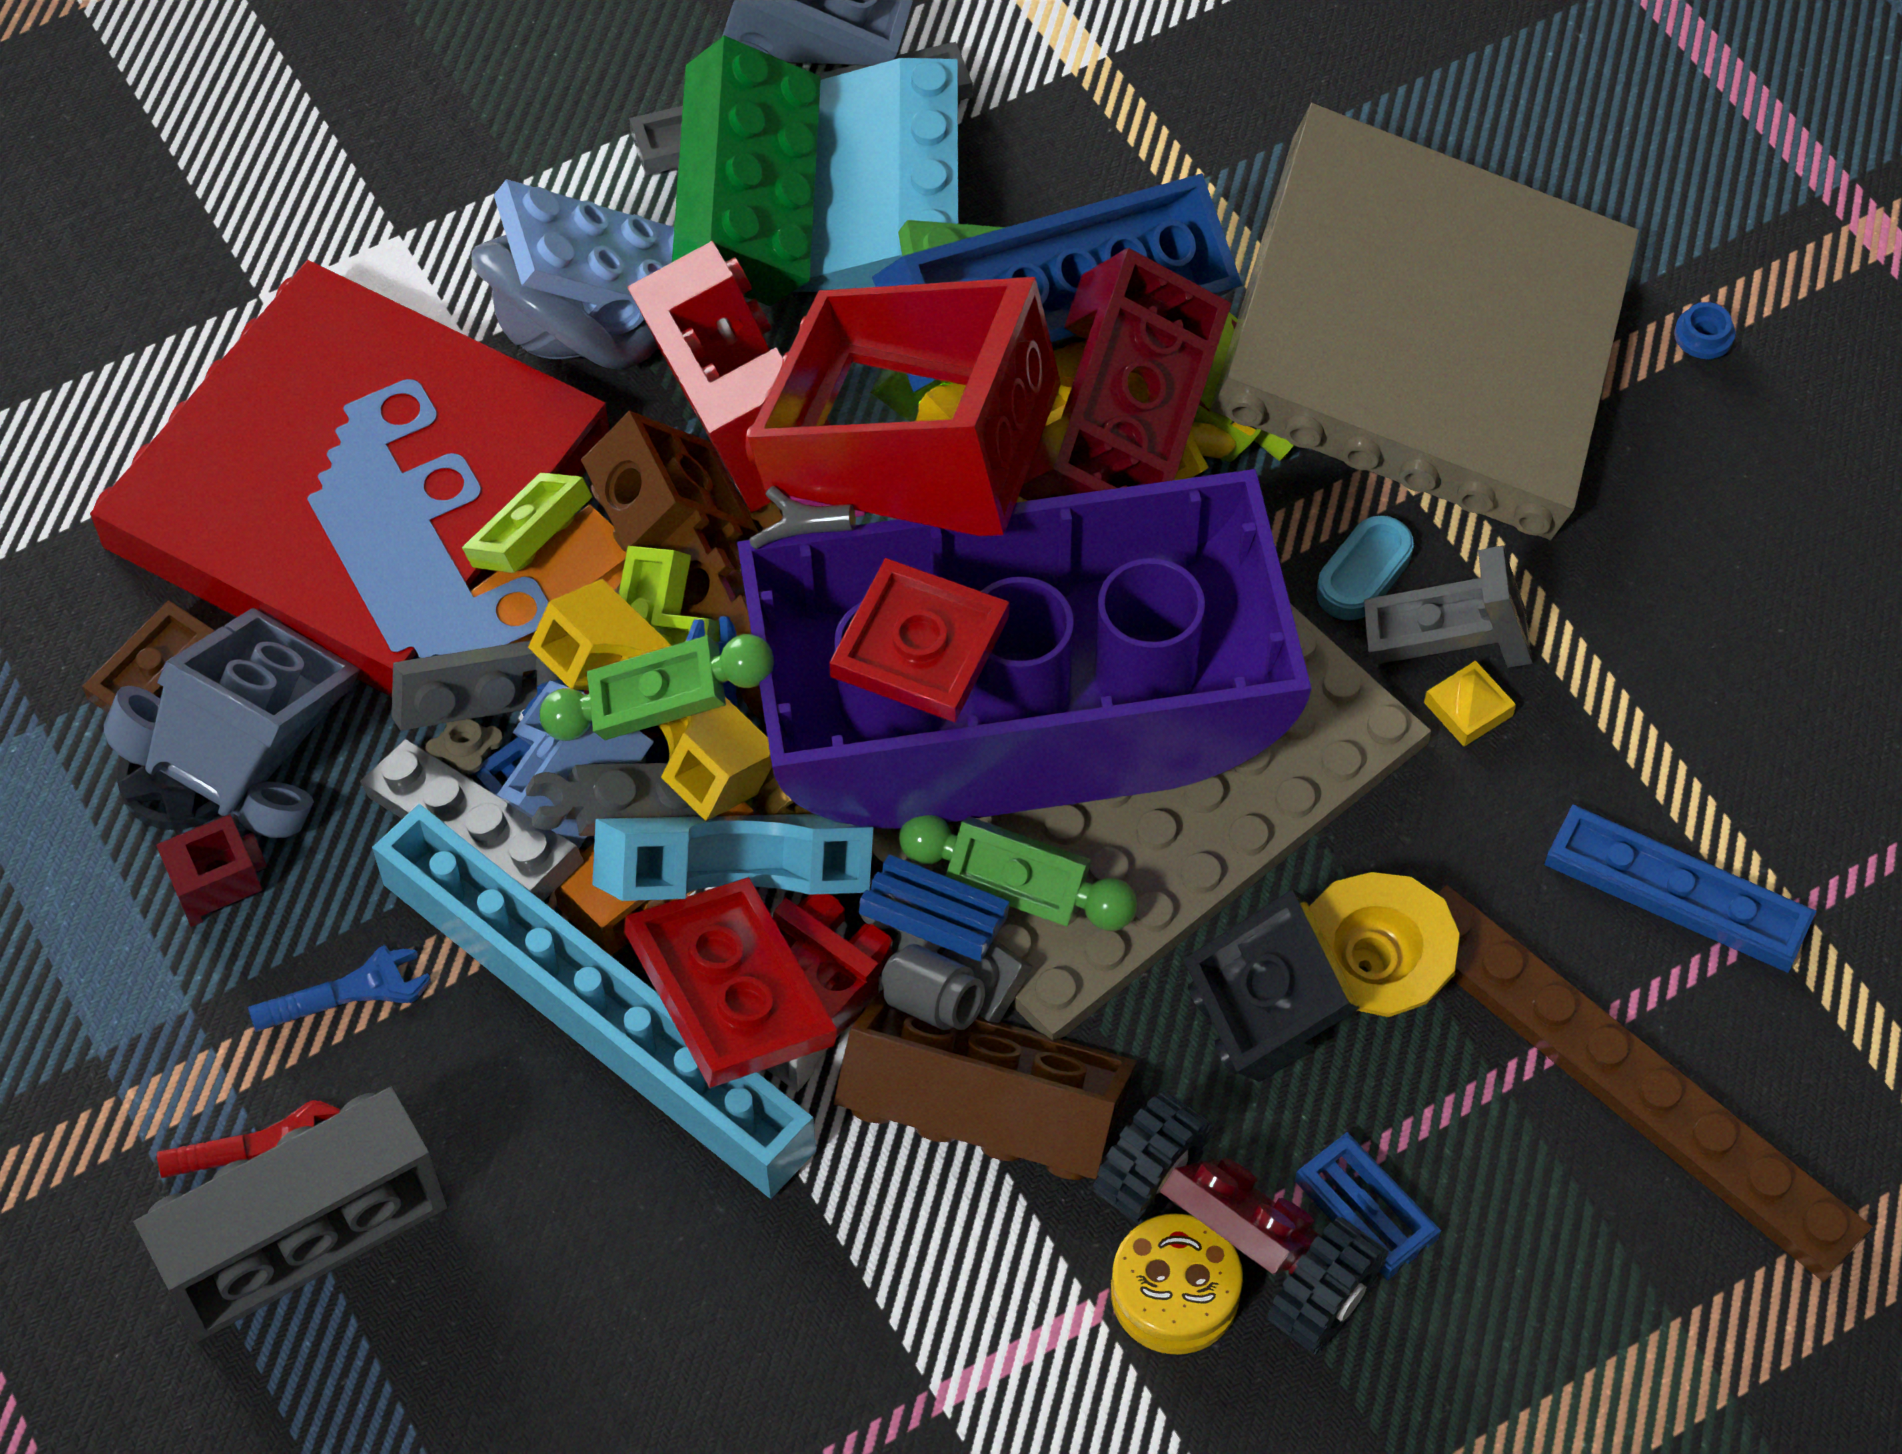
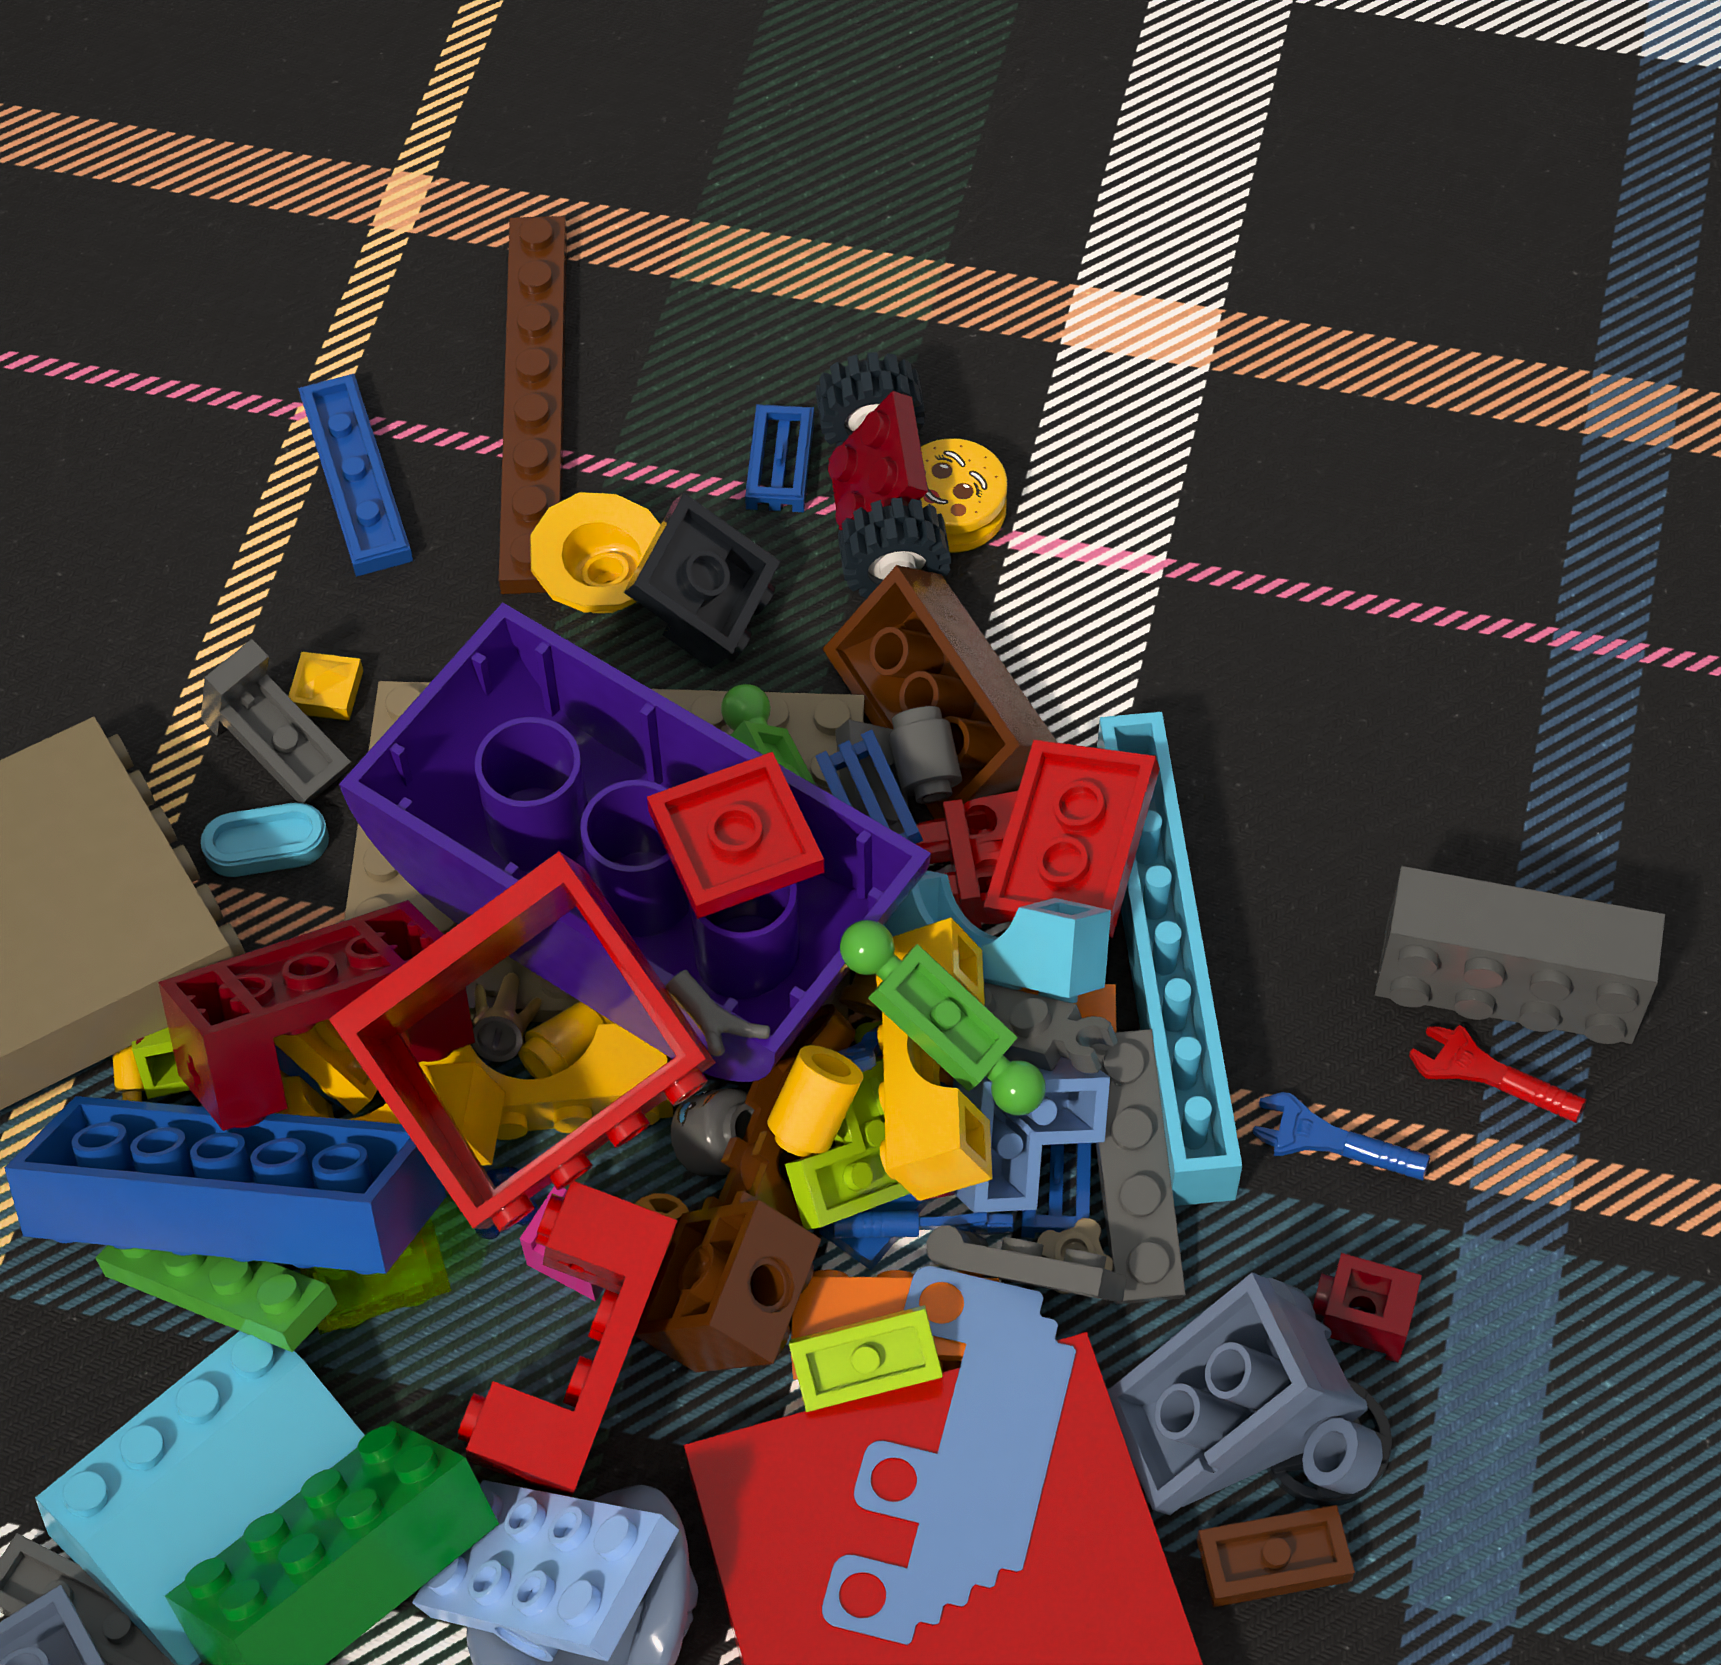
camera: 135 degrees left, 0 degrees up
(699, 582) = (814, 1101): none -> yellow brick

